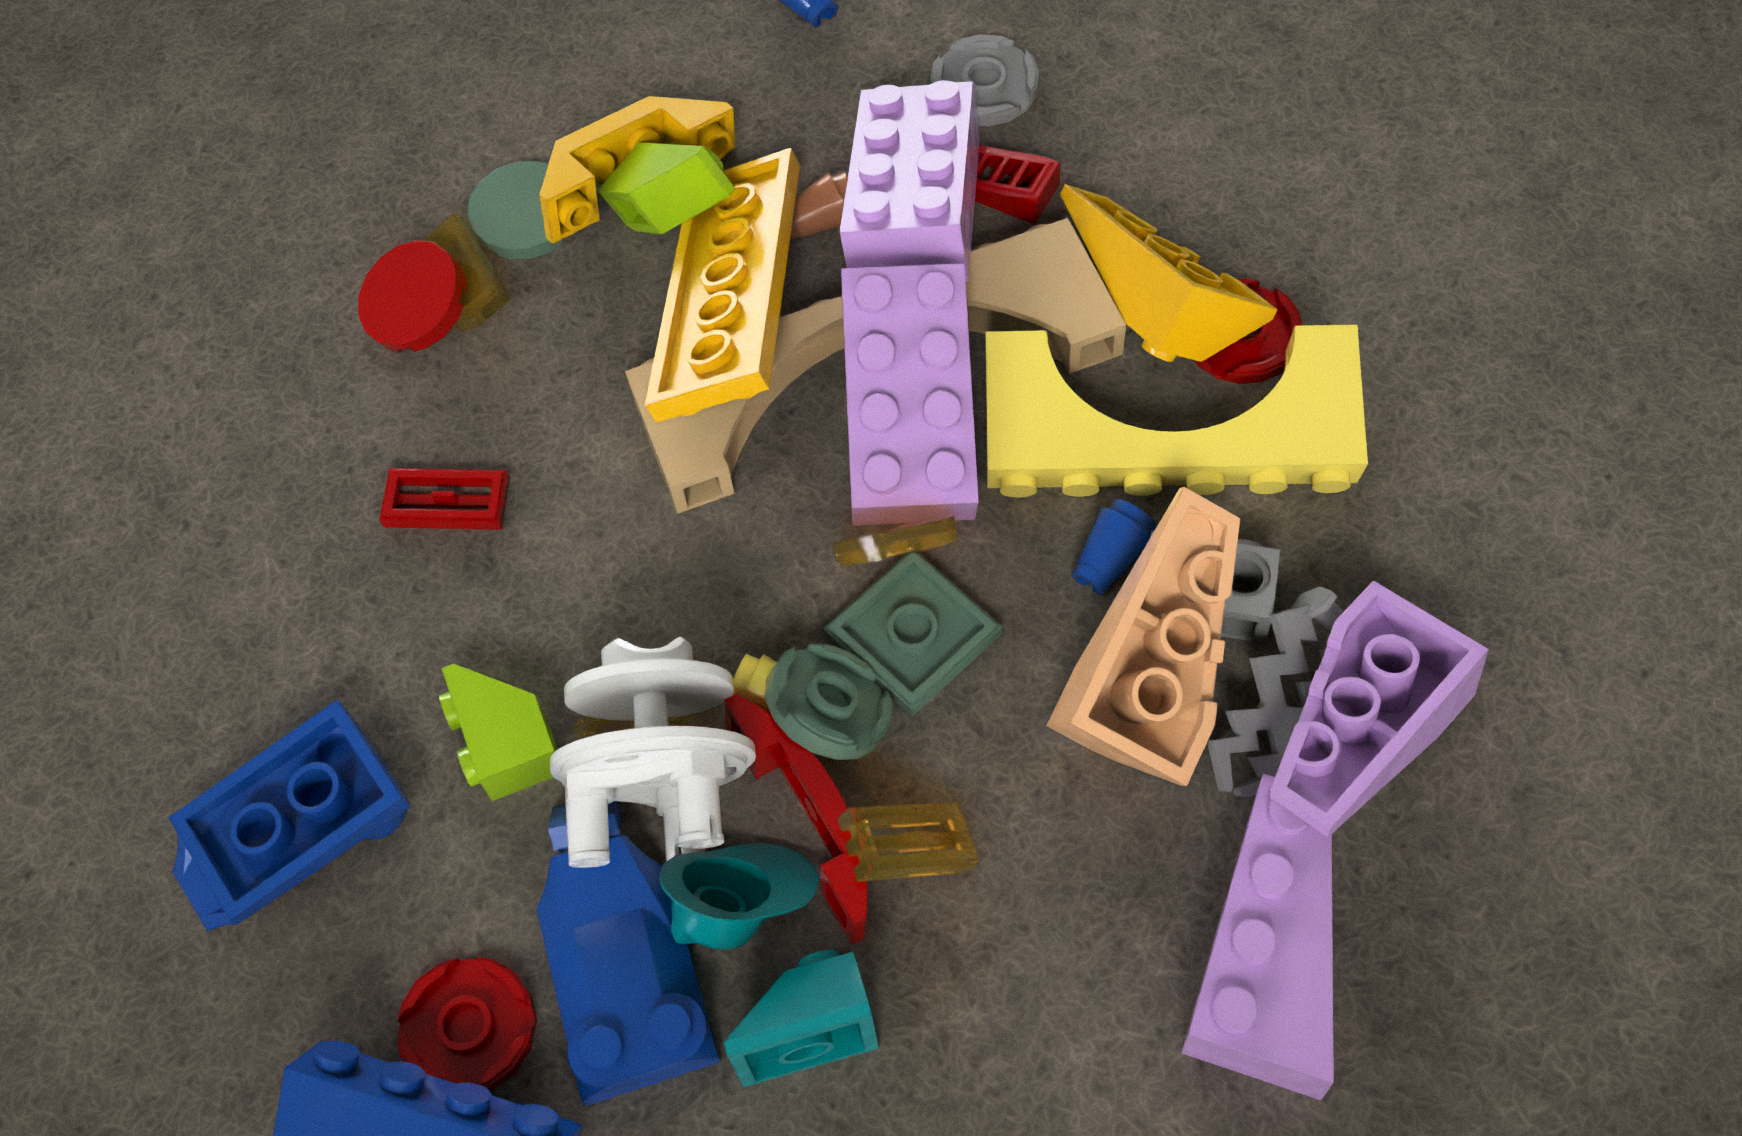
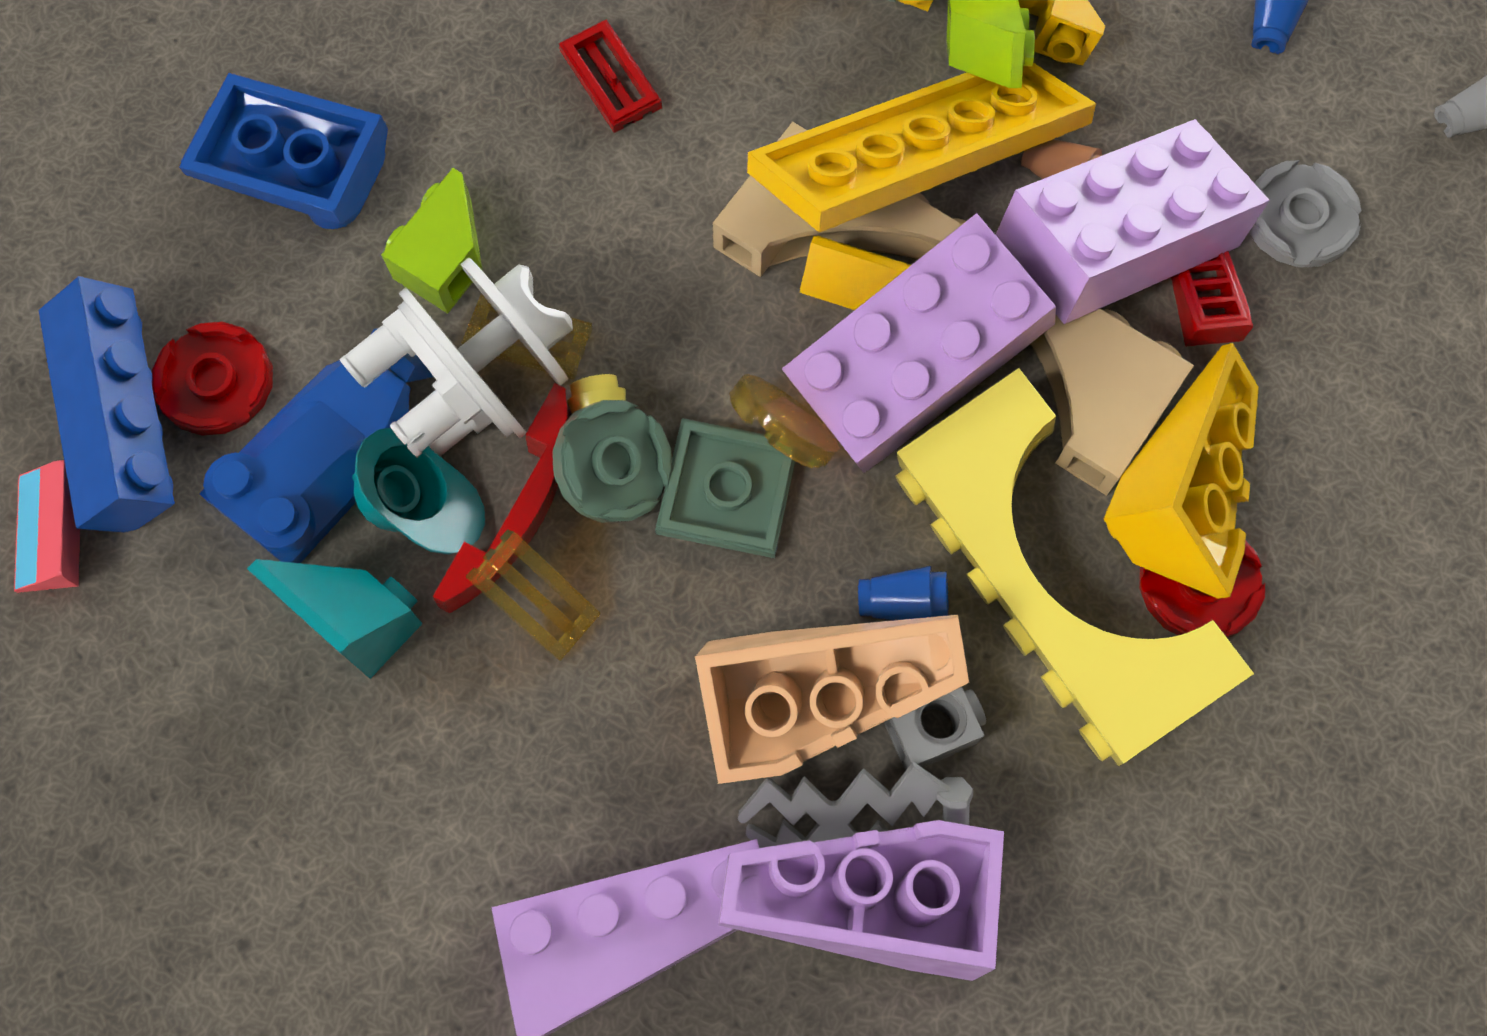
camera: 50 degrees right, 10 degrees up
(799, 414) = (846, 273): none -> yellow slope

